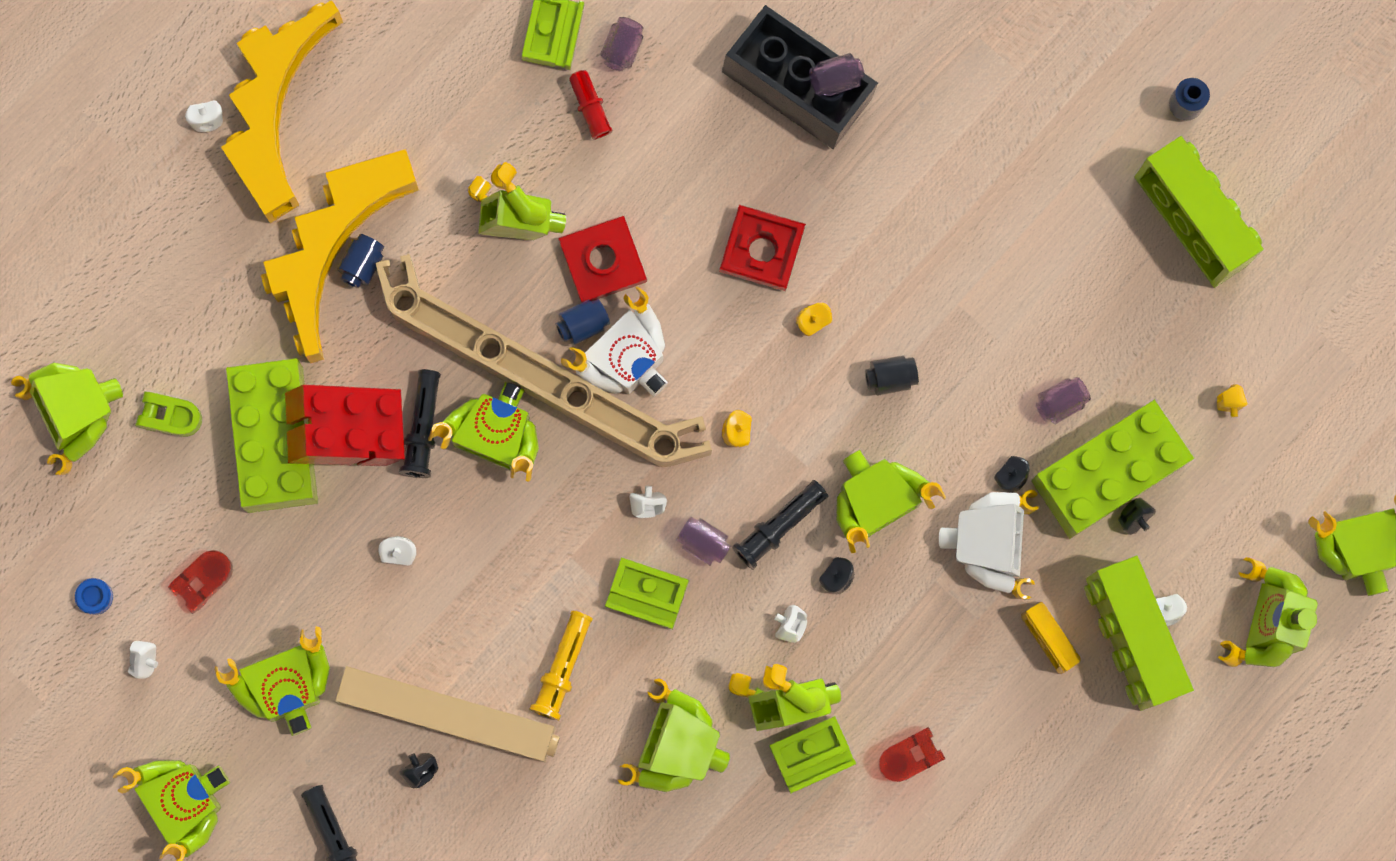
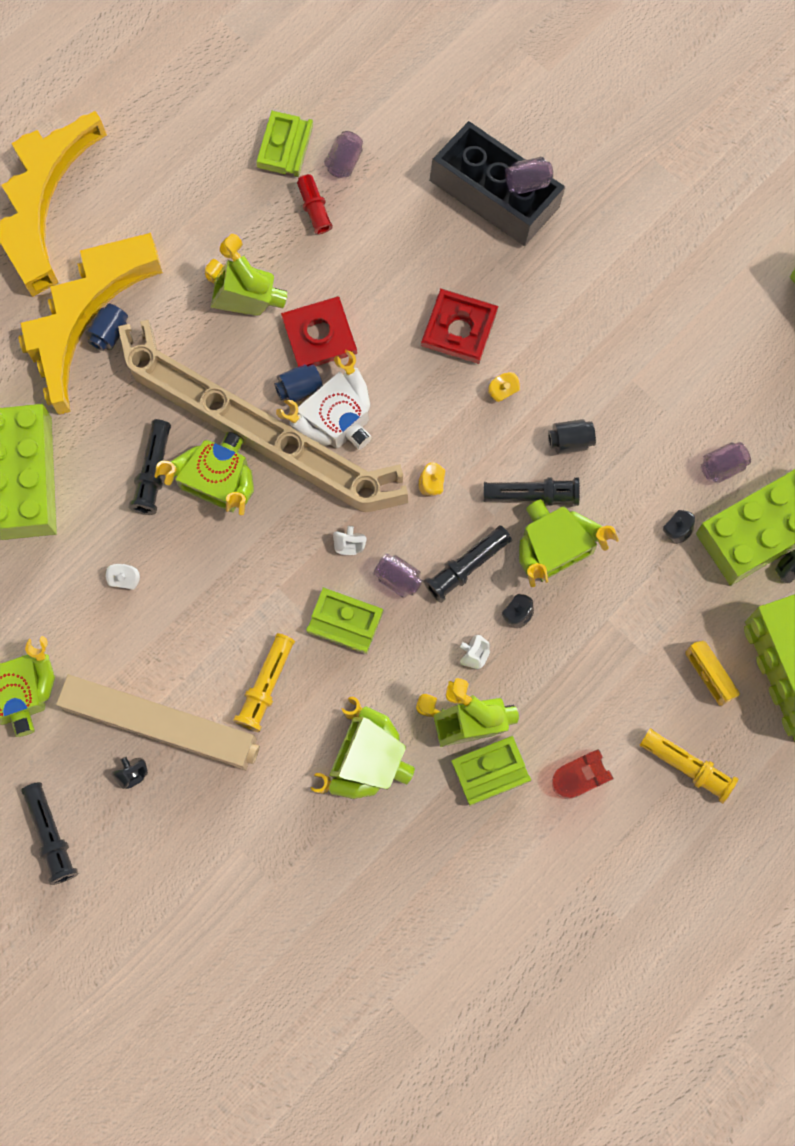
camera: 10 degrees right, 5 degrees down
(345, 425) = (79, 461): red piece -> none
(805, 439) = (493, 492): none -> black pin
(991, 540) = (659, 582): white torso -> none
(1040, 749) = (702, 773): none -> yellow pin

